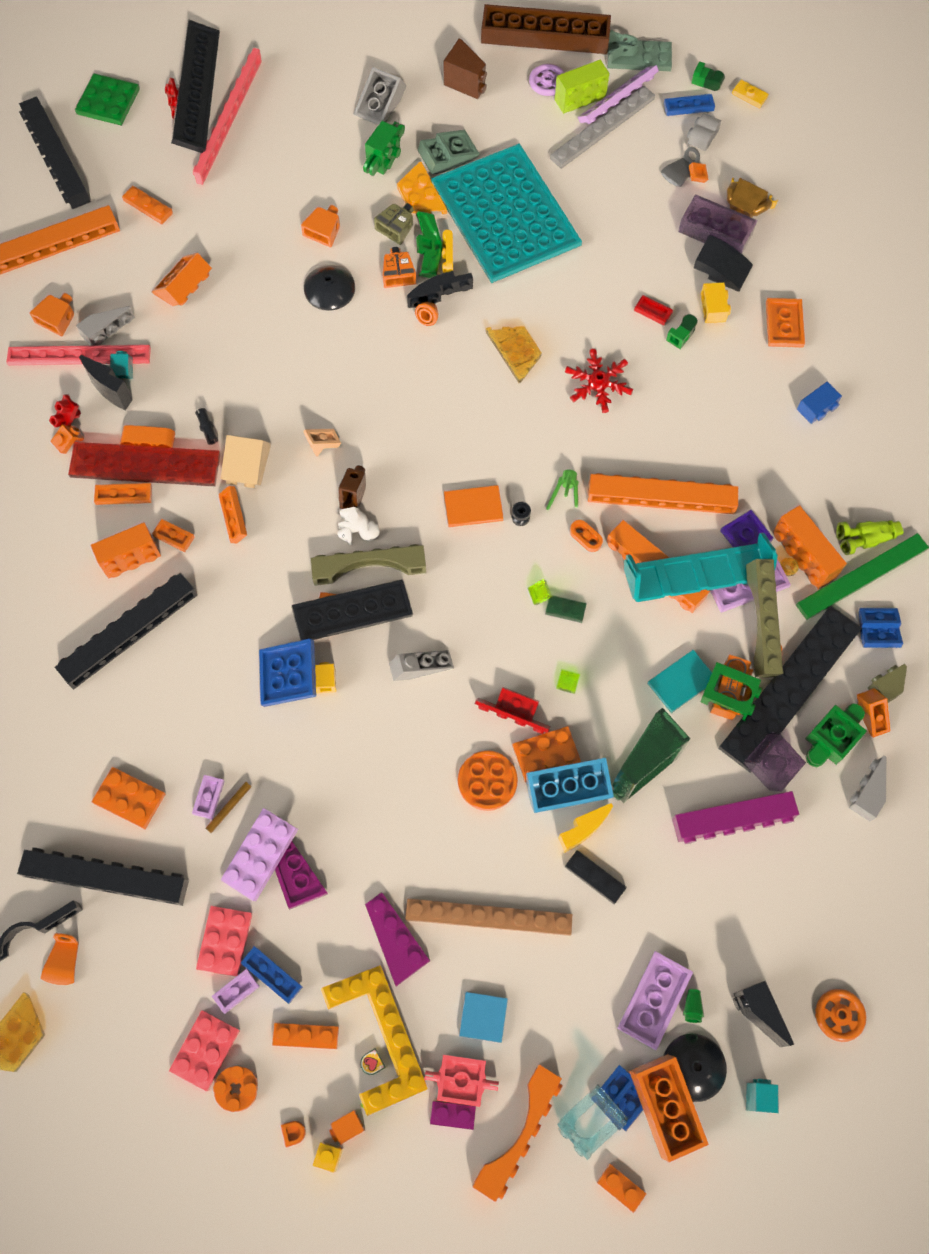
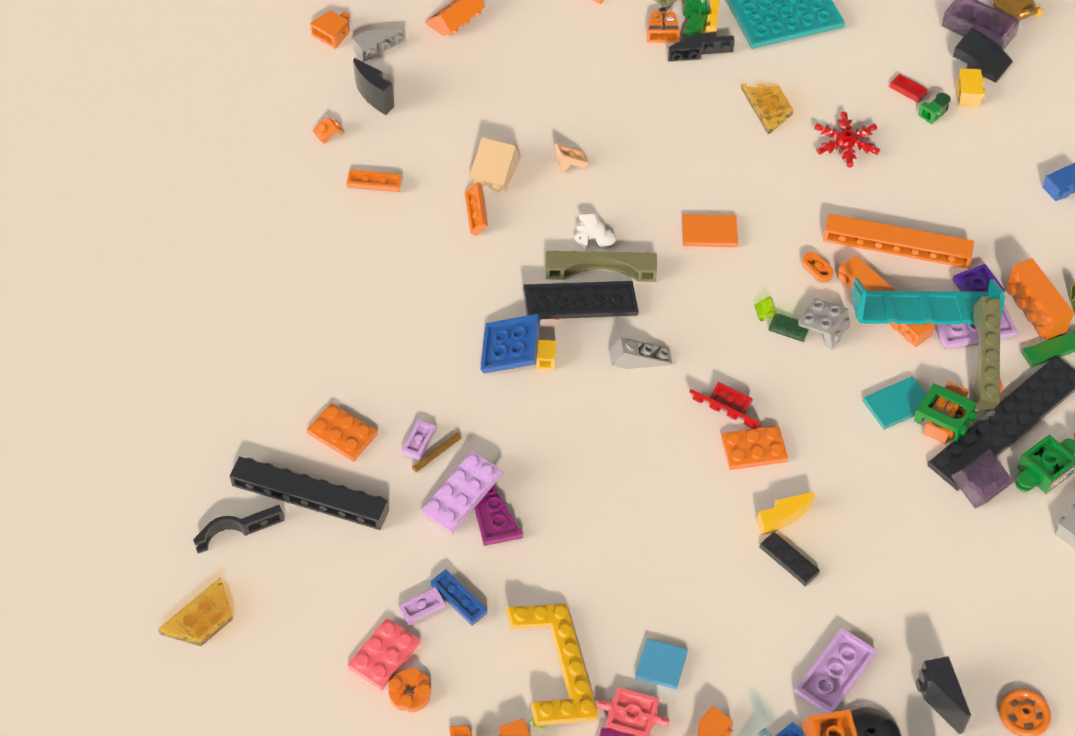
camera: 10 degrees right, 15 degrees down
(62, 961) = (259, 558): orange piece -> none
(66, 412) = (332, 106): red hips -> none
(70, 354) = (345, 64): coral tile -> none
(122, 365) = (390, 73): teal brick -> none
(125, 550) = (371, 224): orange brick -> none
(125, 631) = (361, 292): black brick -> none
(144, 464) = (398, 159): clear red plate -> none
(147, 436) = (404, 138): orange beam -> none
(173, 535) = (416, 220): orange plate -> none
(206, 426) = (461, 135): black pin -> none
(224, 941) = (416, 563): coral plate -> none
(305, 1036) = (484, 655): orange plate -> none
(329, 294) = (594, 36): black dish -> none
(354, 482) = (596, 194): reddish brown torso -> none
(372, 1063) = (546, 687): tile -> none
(397, 943) = (585, 589): magenta wing -> none
(427, 313) = (685, 65): orange brick -> none
(487, 780) = (692, 463): orange tile -> none
(489, 917) = (679, 579): medium nougat plate -> none
(521, 518) = (755, 241): black wheel -> none
(568, 481) = (805, 219): bright green plant -> none
(568, 681) = (783, 388): clear neon green tile -> none
(569, 785) = (773, 471): dark azure brick -> none
(601, 599) = (826, 319): none -> light grey bracket
(652, 754) = (855, 450): clear green windscreen -> none
(693, 1007) = (874, 683): green cone -> none
(735, 816) = (937, 523): magenta brick -> none
(785, 322) = (1039, 111): orange plate -> none
(789, 562) = (1019, 317): clear yellow plate -> none

